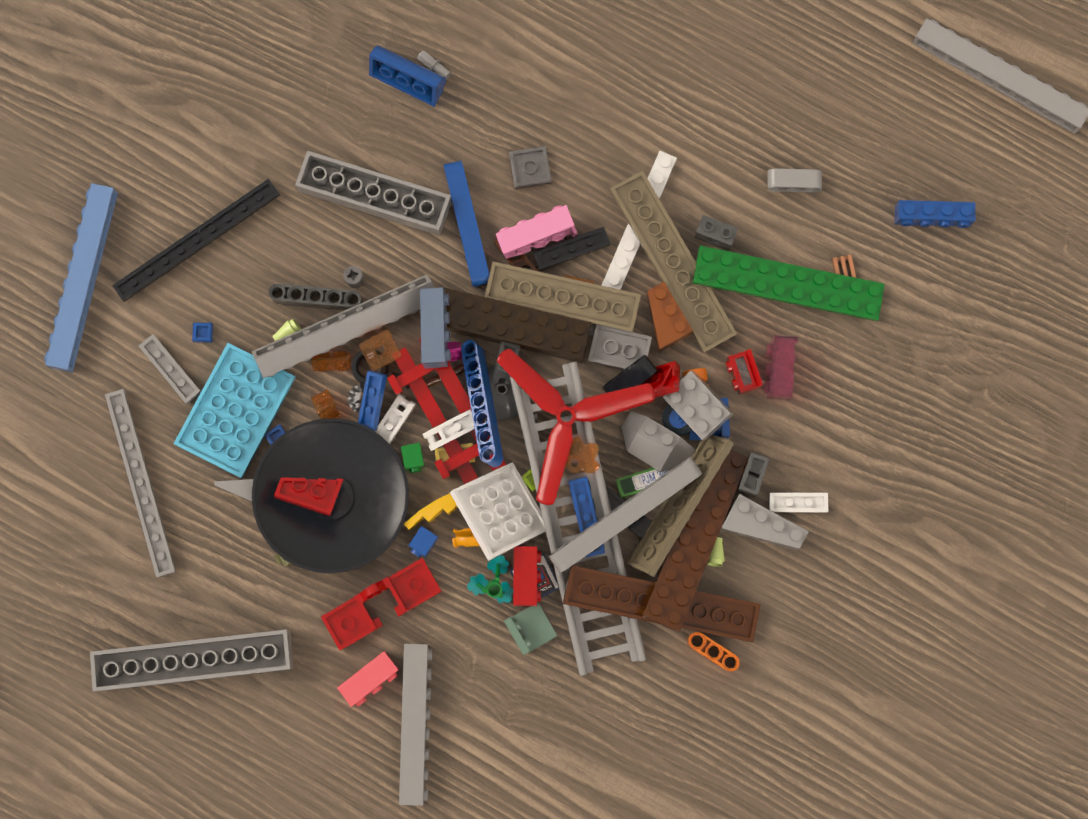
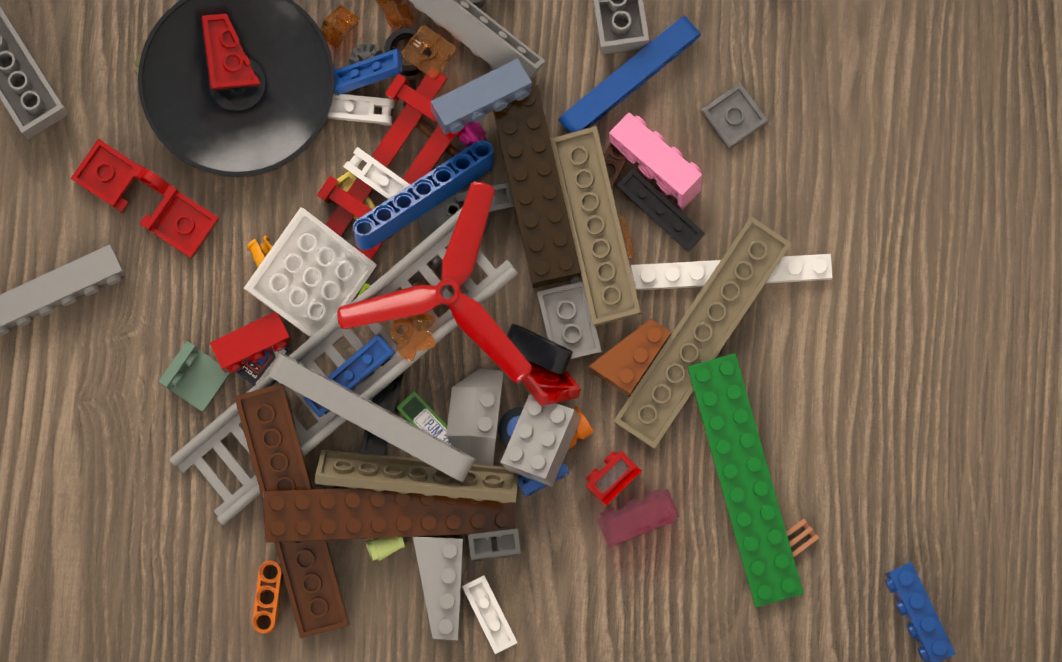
camera: 65 degrees right, 0 degrees up
(369, 679) = (53, 227): coral brick -> none
(413, 457) = (326, 151): green brick -> none
(423, 542) = (236, 210): blue brick -> none
(432, 510) = (272, 200): yellow slope -> none
(493, 588) = (218, 310): teal plant -> none
(716, 233) = (763, 366): dark grey brick -> none
(794, 180) = (875, 428): light grey beam -> none

